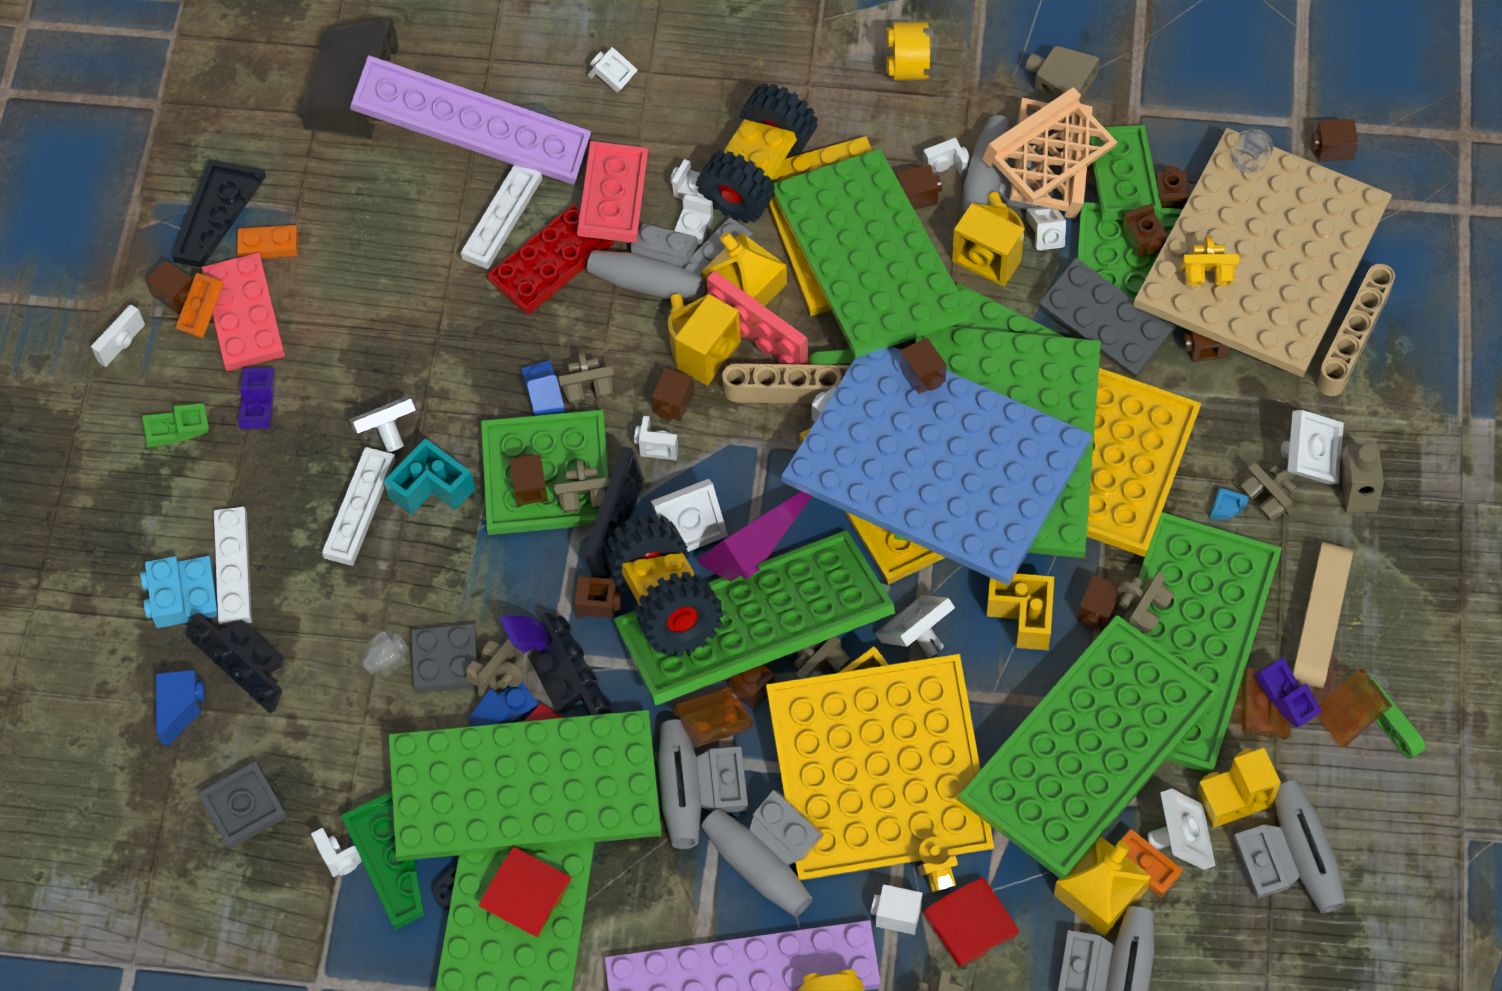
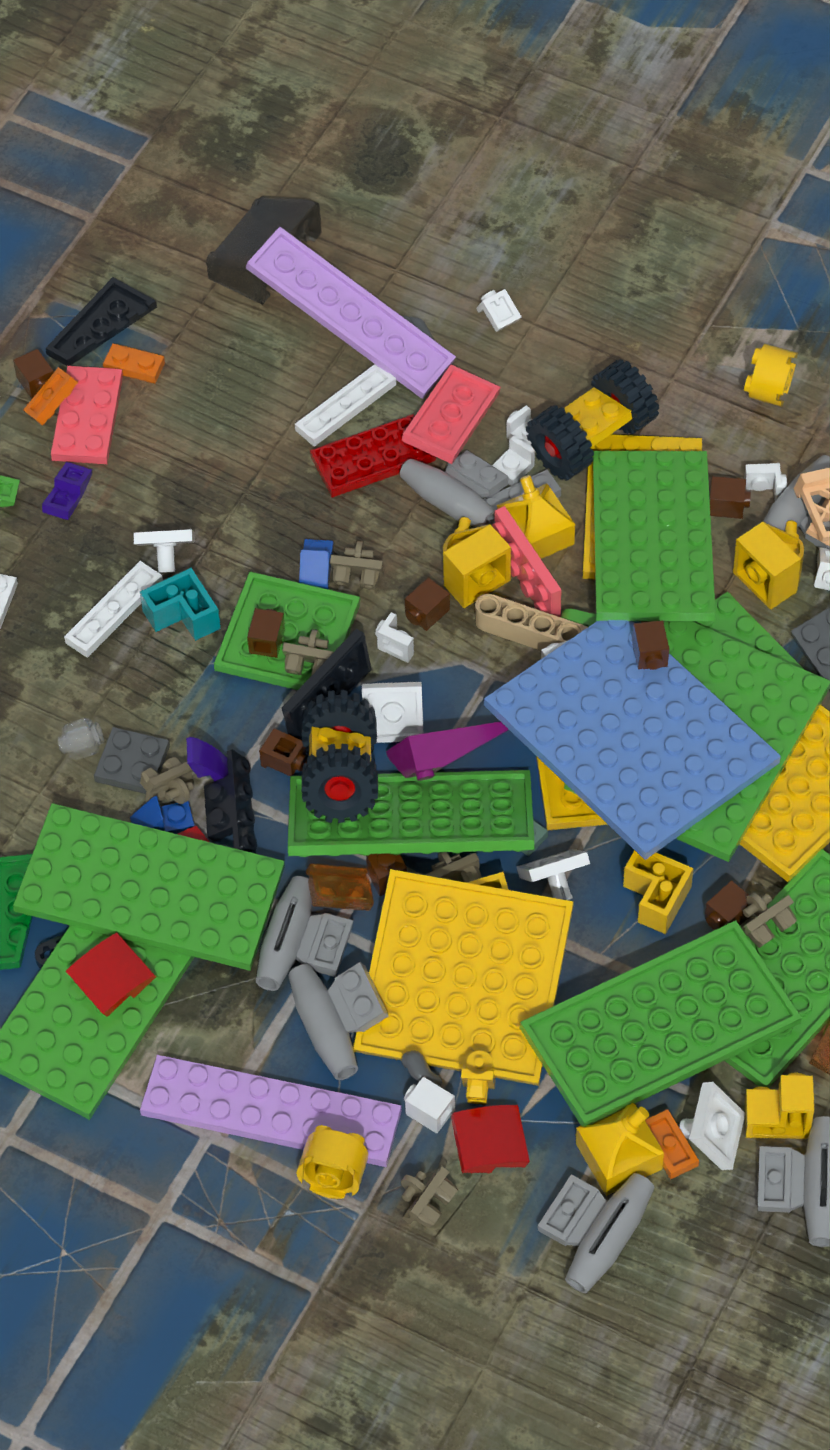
camera: 20 degrees right, 5 degrees down
(872, 875) = (418, 1067): none -> dark grey arm

